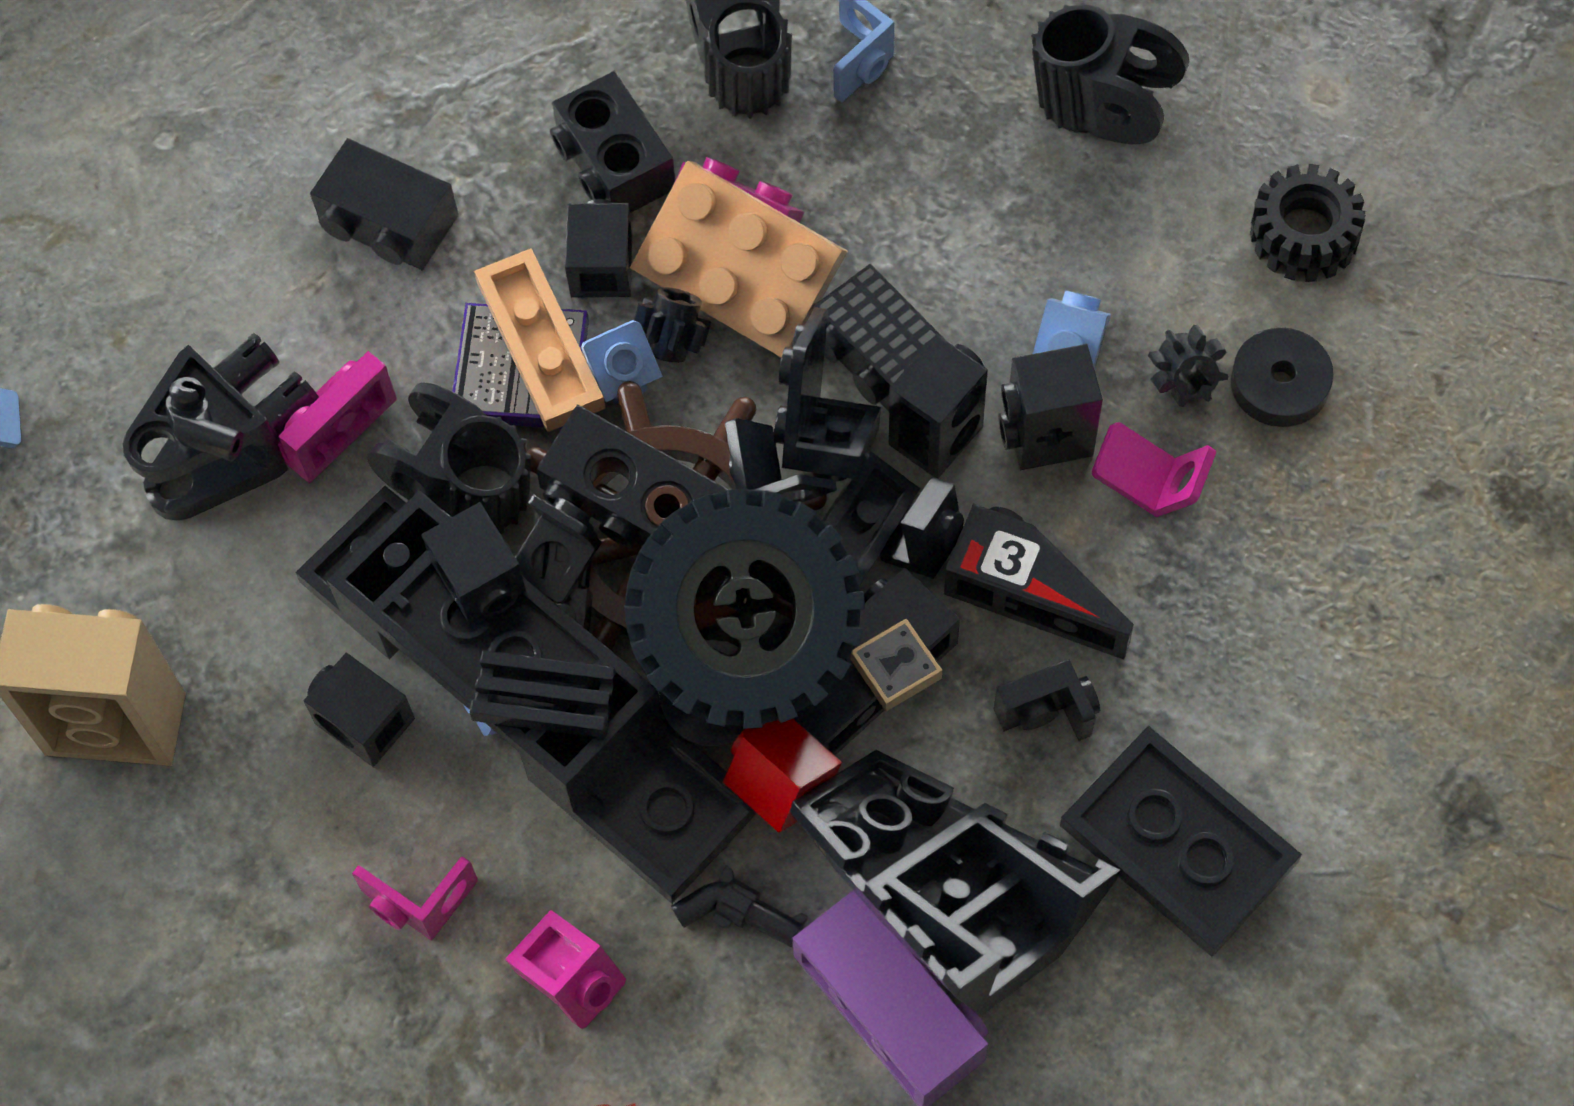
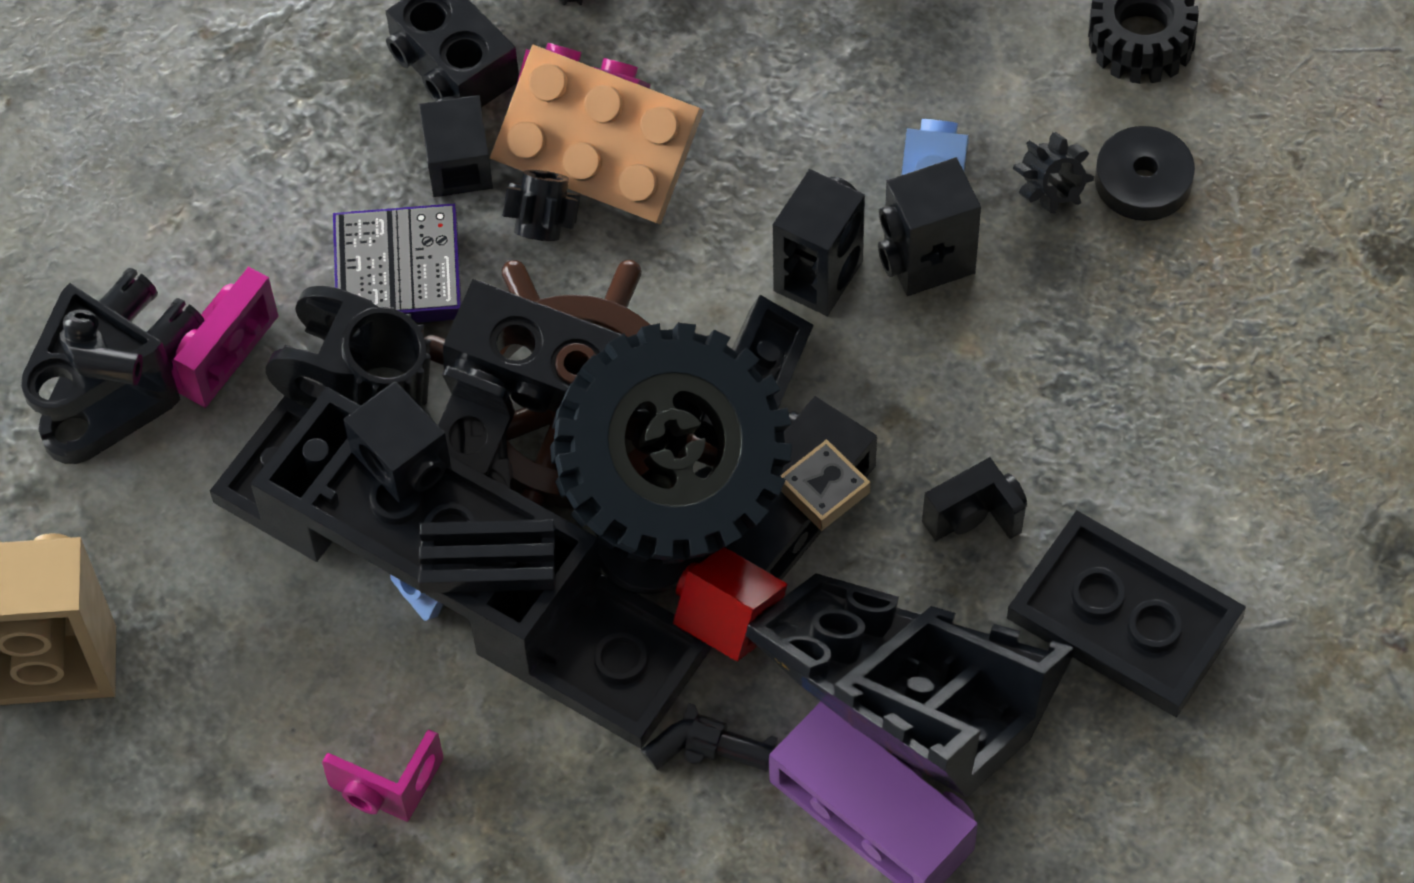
camera: 10 degrees left, 5 degrees down
(358, 708) = (296, 610): black brick -> none
(384, 205) = (233, 132): black brick -> none
(539, 338) = (413, 232): light nougat plate -> none
(567, 968) = (550, 822): dark pink bracket -> none
(621, 357) = (495, 240): light blue bracket -> none
(757, 467) = (649, 305): black bracket -> none
(819, 432) = (706, 285): black bracket -> none
(873, 332) = (739, 186): black brick -> none
(926, 531) = (829, 359): black bracket -> none
(1023, 576) = (931, 392): black slope -> none
(1149, 473) = (1032, 279): dark pink bracket -> none

